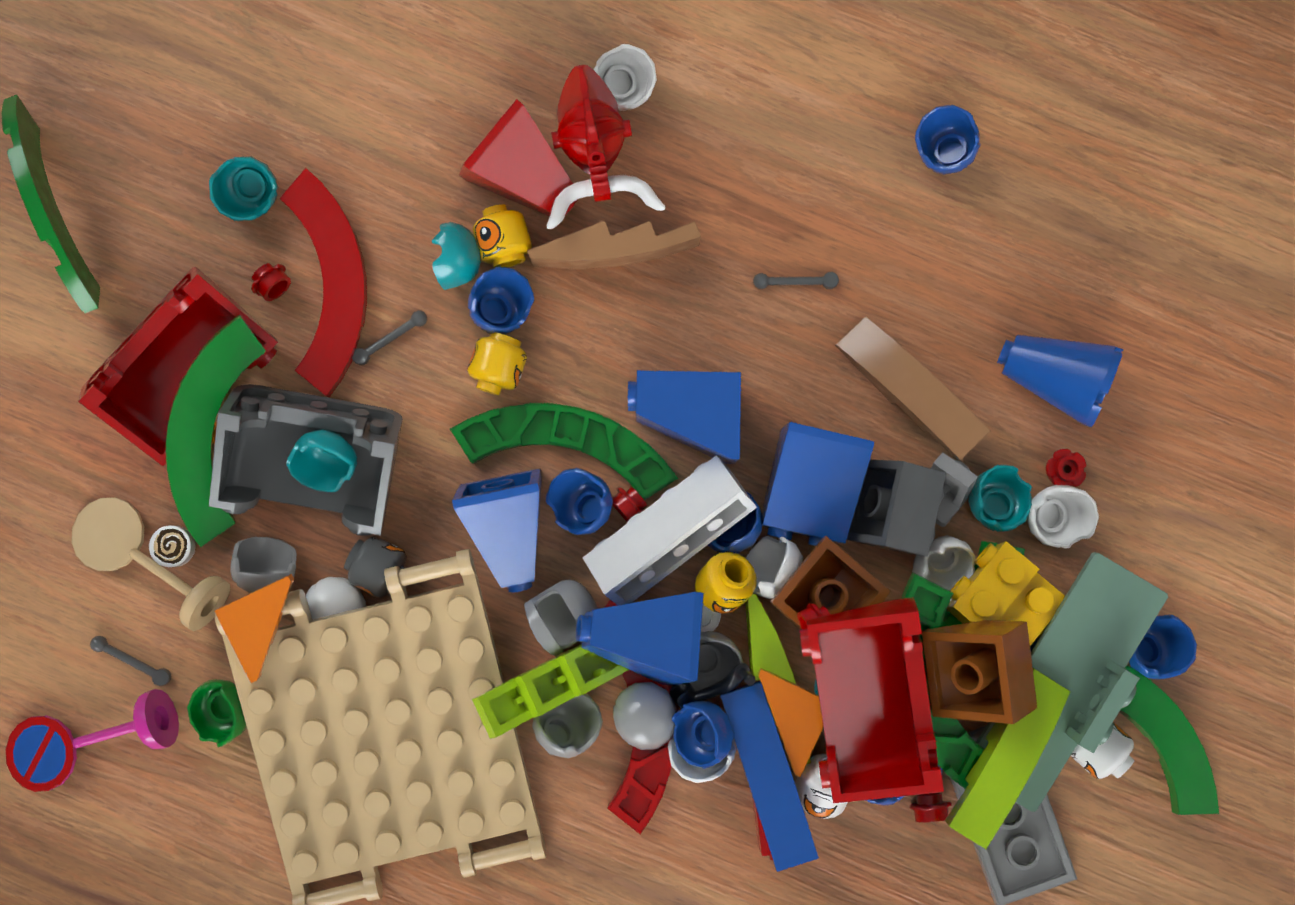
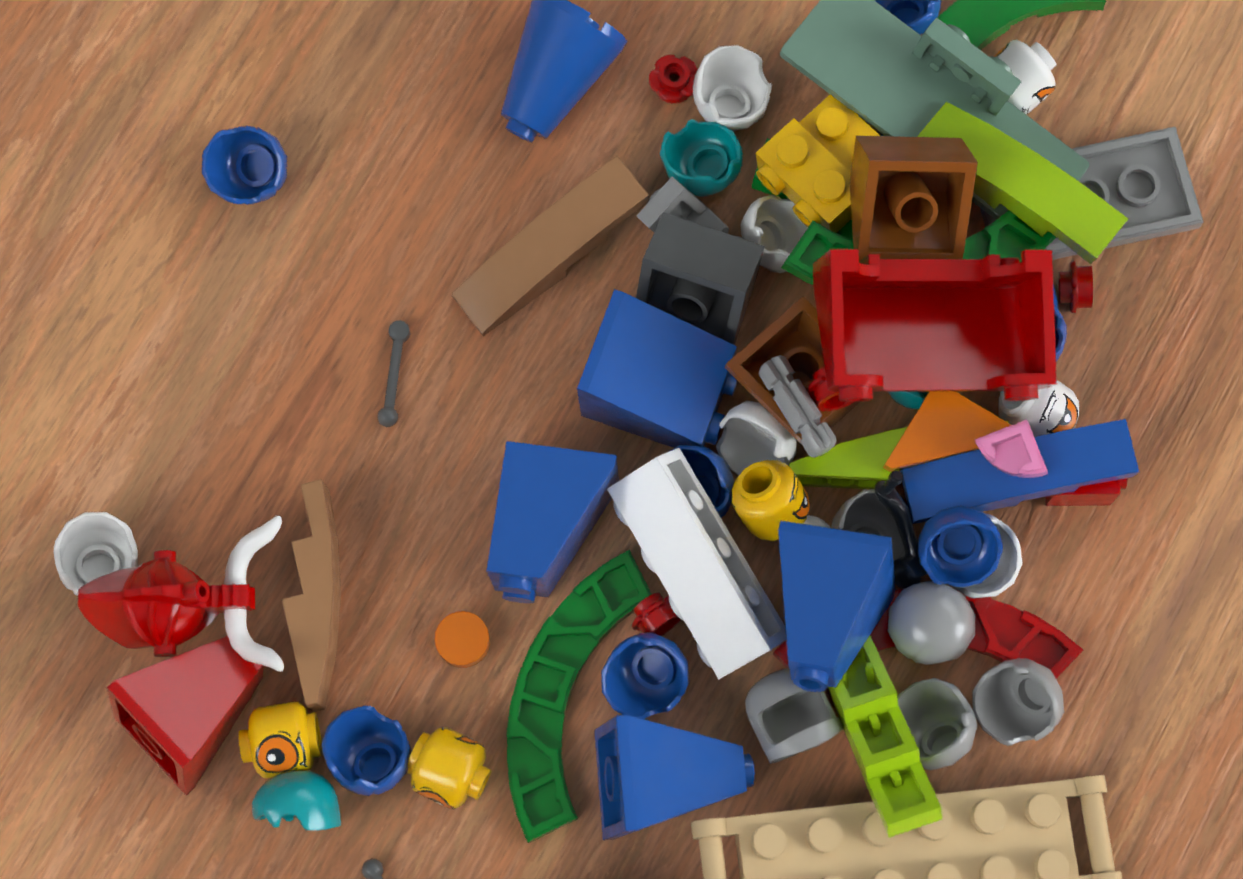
camera: 75 degrees left, 10 degrees down
(592, 788) = (1018, 701): none -> light grey hair
(595, 361) = (462, 639): none -> orange tile
(781, 771) = (1013, 451): none -> bright pink tile
(797, 596) = (797, 406): none -> light grey axle

